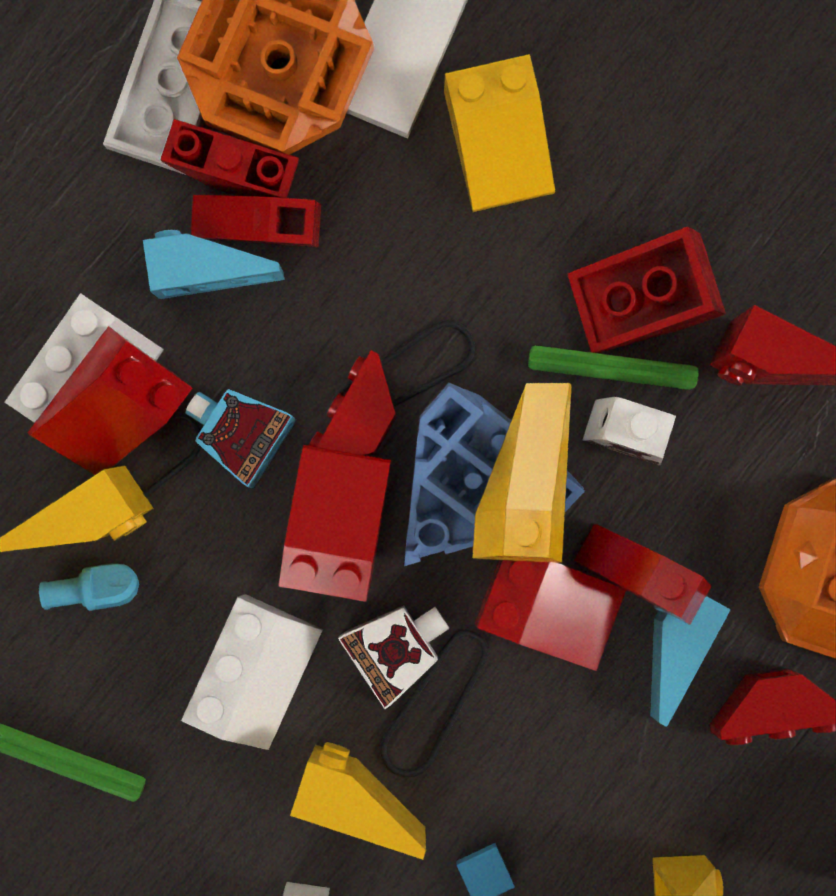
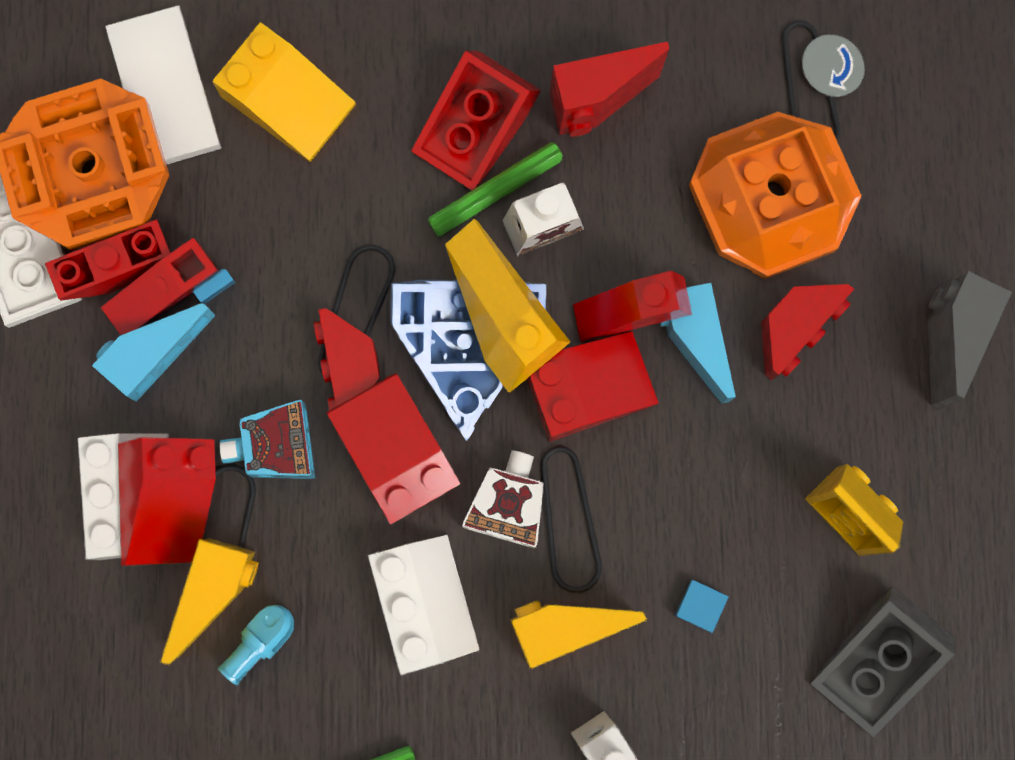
camera: 50 degrees left, 5 degrees down
(301, 254) = (213, 286): none -> dark azure tile

